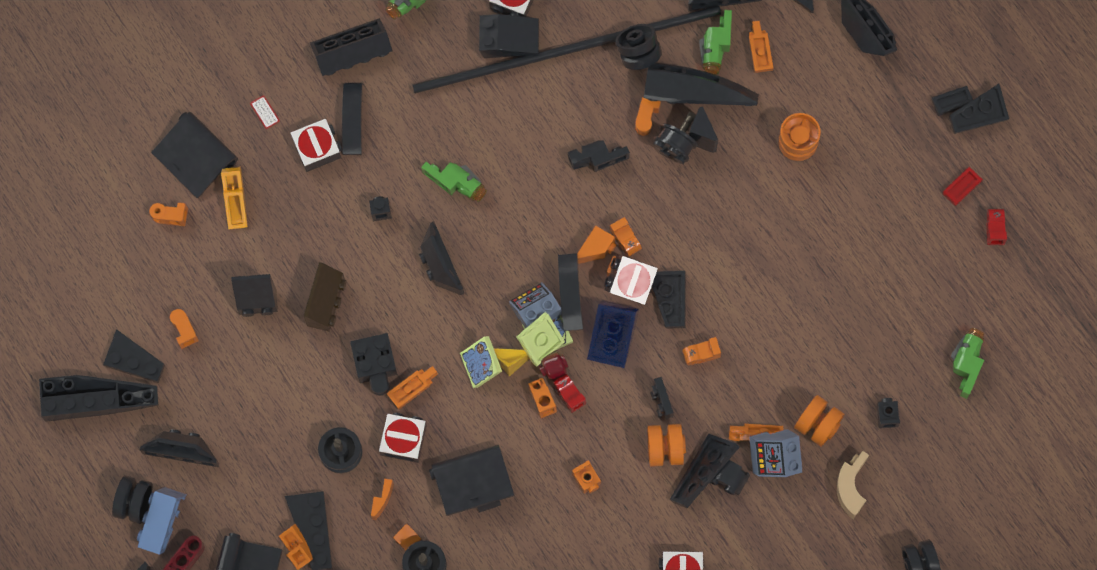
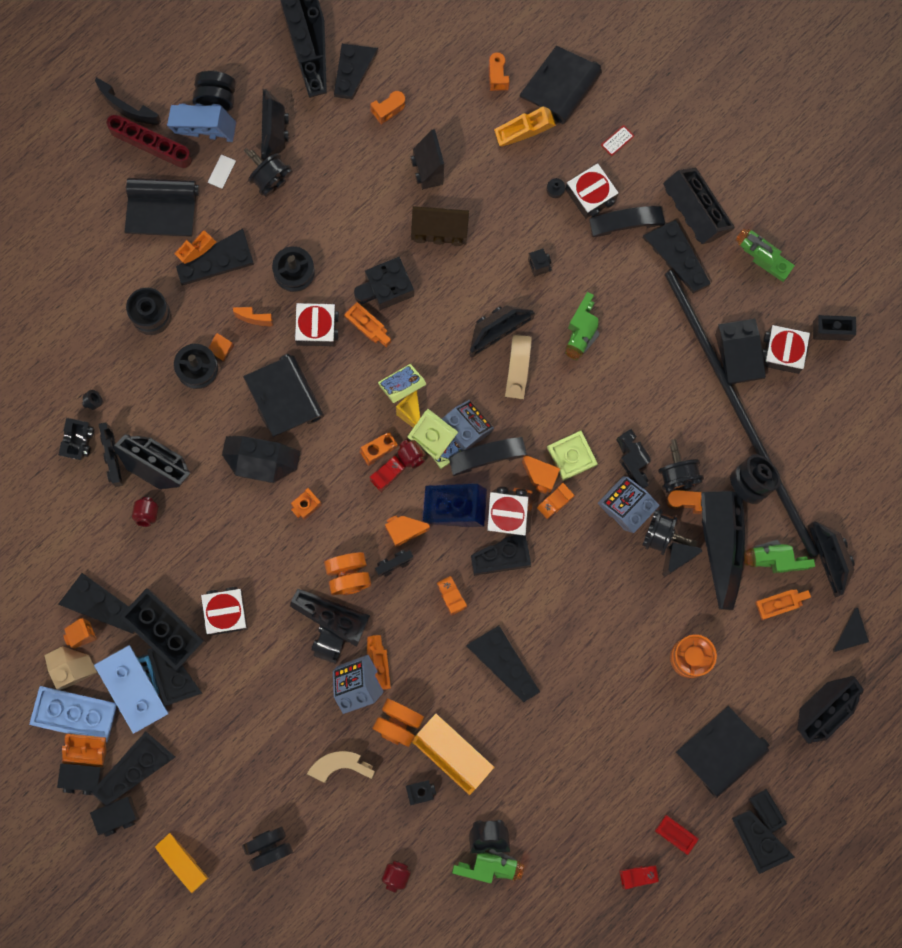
camera: 70 degrees right, 5 degrees up
(216, 510) = (221, 171): none -> white sticker
(234, 457) = (269, 173): none -> black wheel
(303, 180) = (555, 188): none -> black tile
(397, 76) = (675, 250): none -> black wing
(483, 245) = (518, 366): none -> tan arch
(531, 517) = (259, 458): none -> black wedge
(581, 214) = (572, 455): none -> yellowish green tile
(621, 114) = (680, 473): none -> black wheel
(628, 386) = (404, 529): none -> orange slope
(641, 169) = (628, 504): none -> sand blue piece
(775, 314) = (500, 657): none -> black wing
(856, 376) = (452, 754): none -> light orange brick
(891, 129) = (723, 751): none -> black door
(939, 356) = (489, 836): none -> black cylinder
(964, 448) = (396, 876): none -> dark red head

